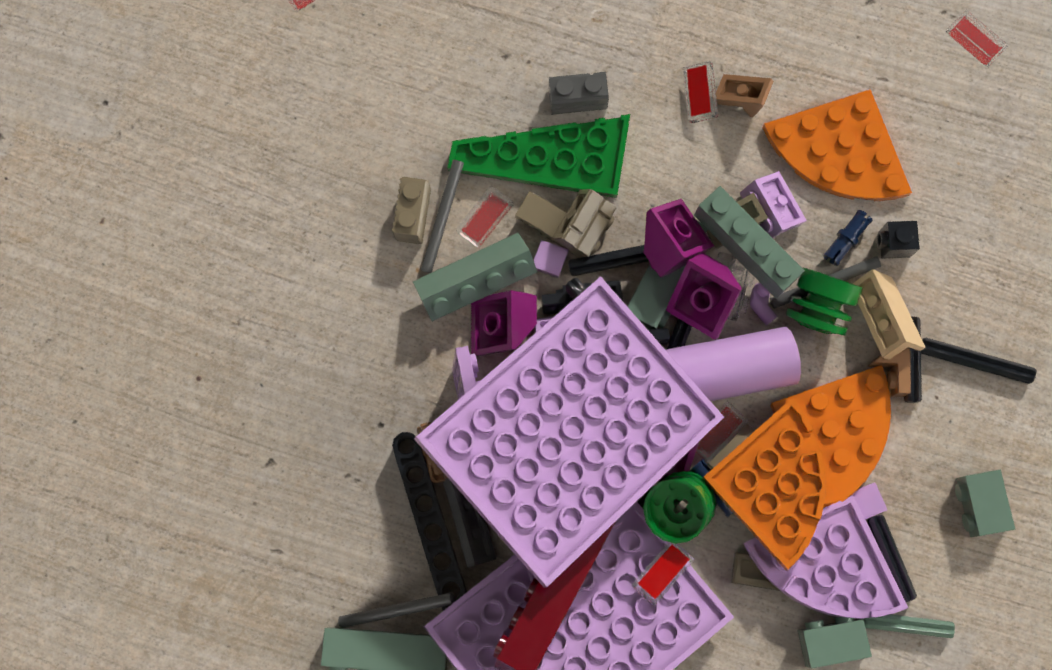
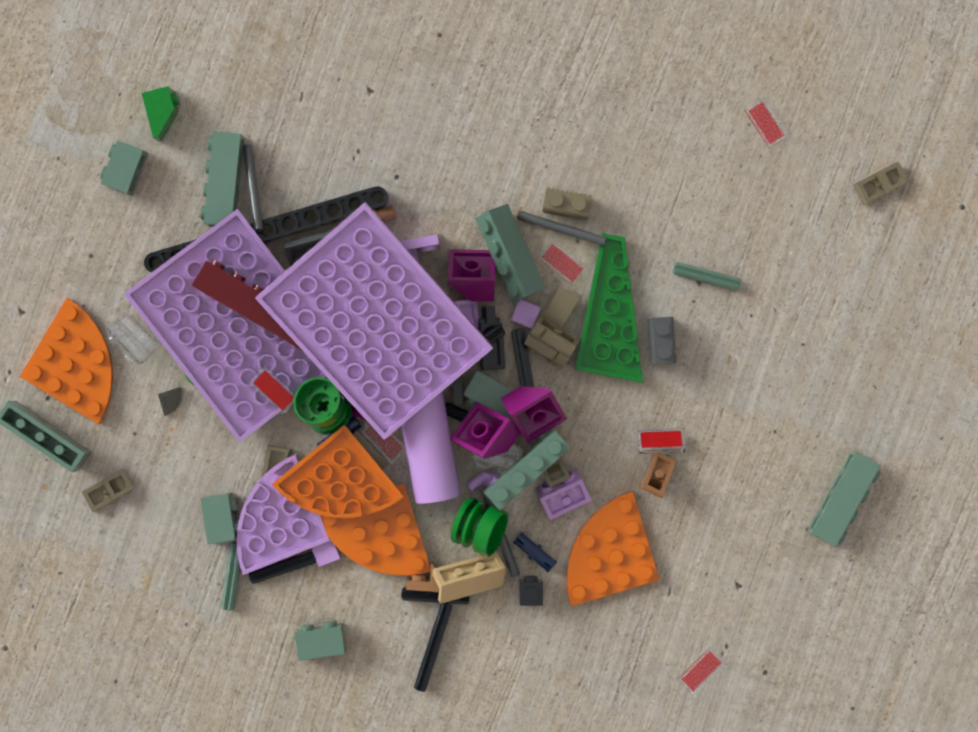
camera: 85 degrees right, 10 degrees up
(497, 46) = (706, 276): none -> sand green axle

